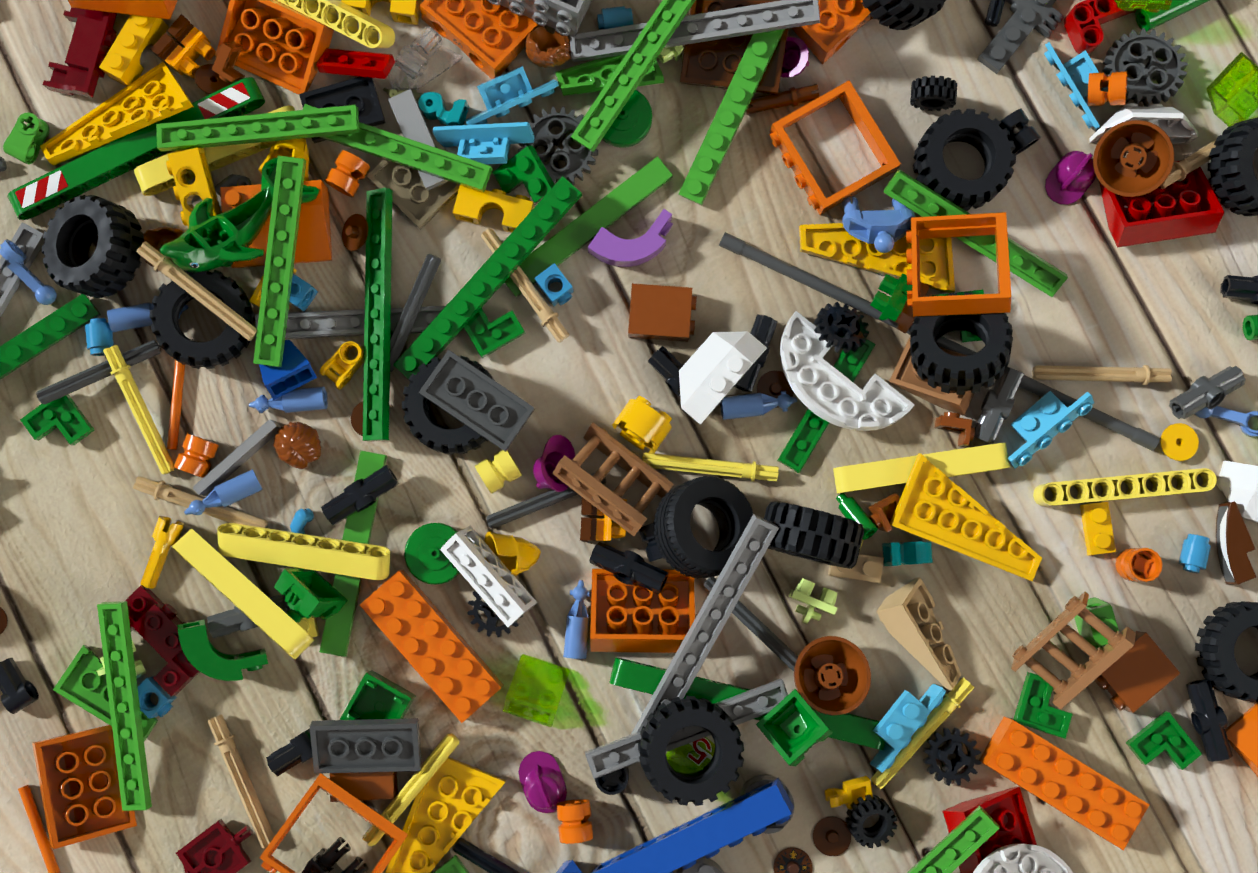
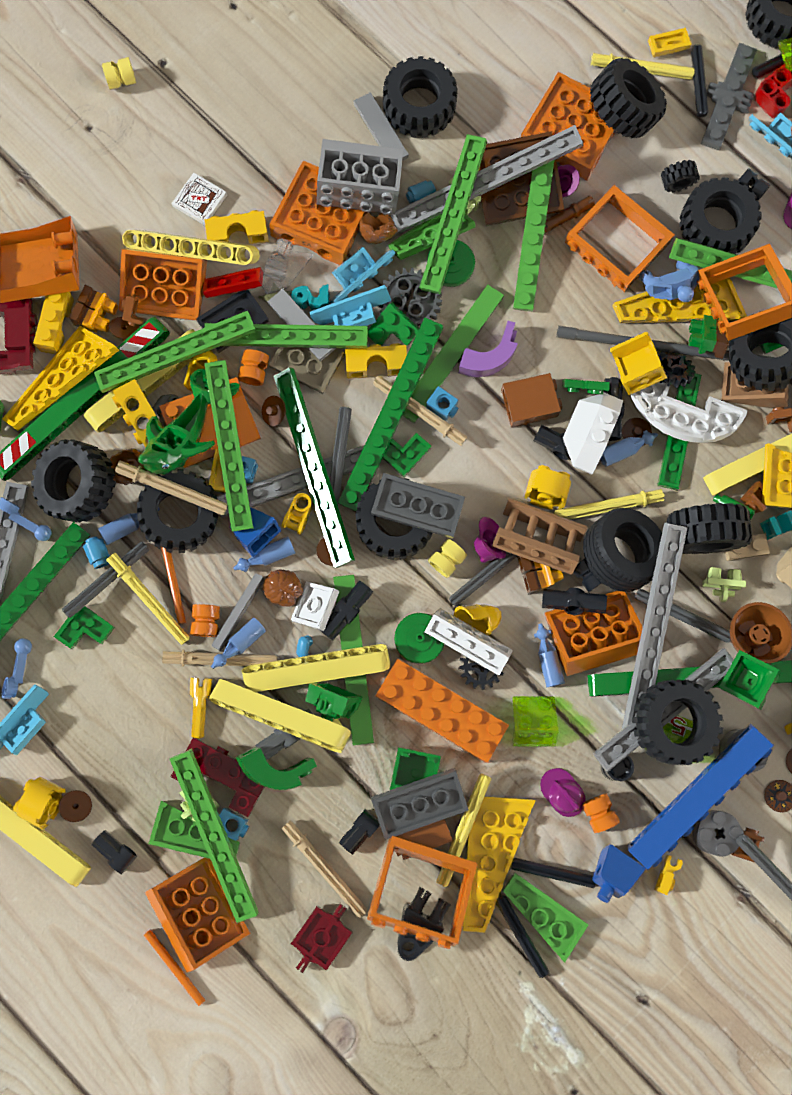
camera: 20 degrees left, 5 degrees down
(326, 478) = (315, 605): none -> white tile
(736, 318) = (592, 387): none -> green plate
(801, 308) = (638, 363): none -> yellow panel

